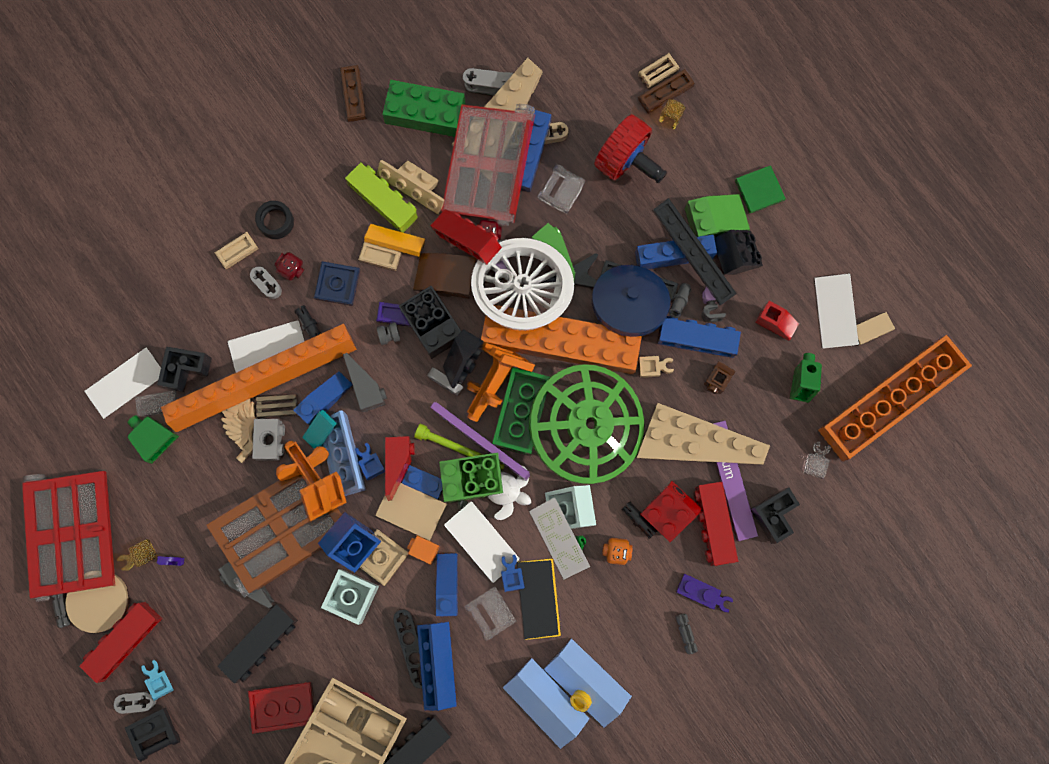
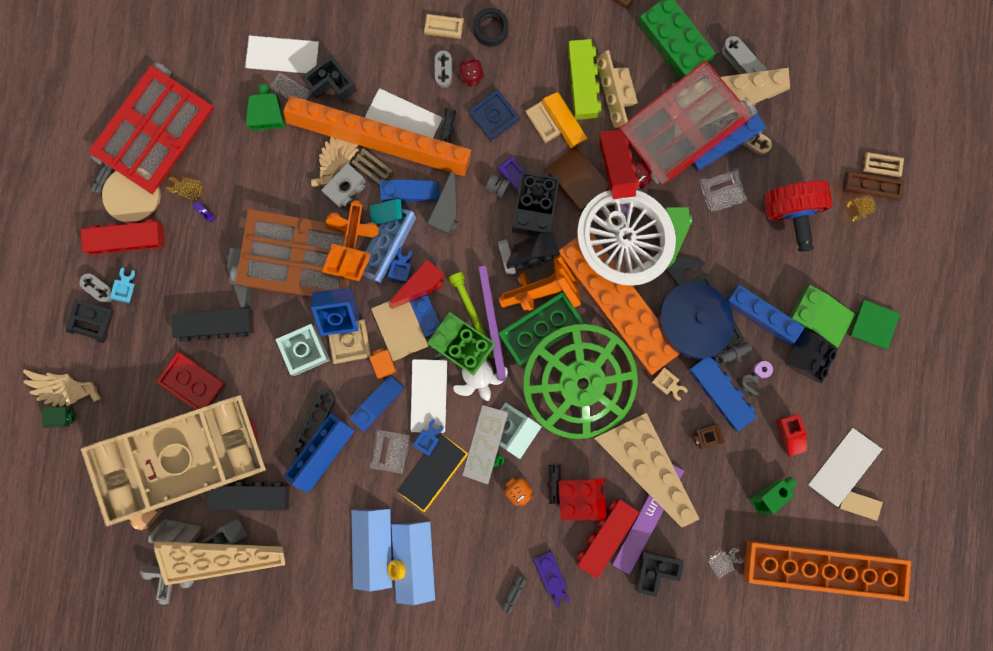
camera: 50 degrees right, 5 degrees up
(694, 251) = (777, 327): black tile -> none

